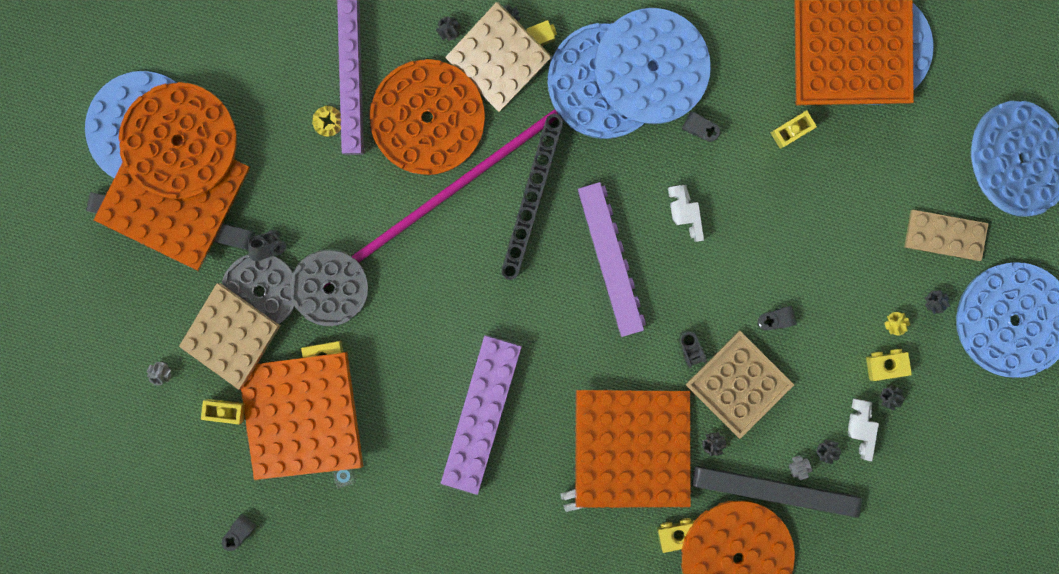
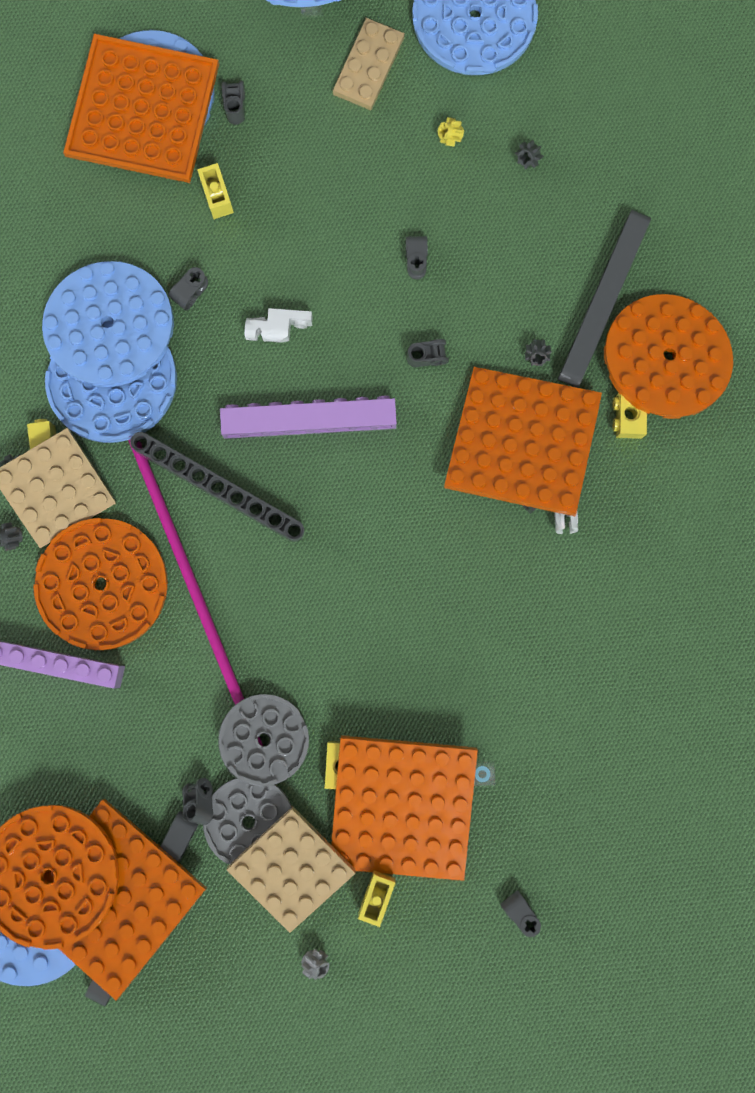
camera: 80 degrees left, 5 degrees down
(330, 129) = (87, 697): light yellow gear -> none
(481, 414) = (448, 600): lavender brick -> none
(739, 384) = (478, 312): tan plate -> none
(800, 467) = (583, 267): light grey gear -> none
(828, 451) = (572, 233): dark grey gear -> none
(862, 428) = (555, 193): white plate -> none
(885, 123) = (234, 99): none -> dark grey piece
(899, 368) = (498, 140): light yellow brick -> none
(937, 301) = (437, 86): dark grey gear -> none

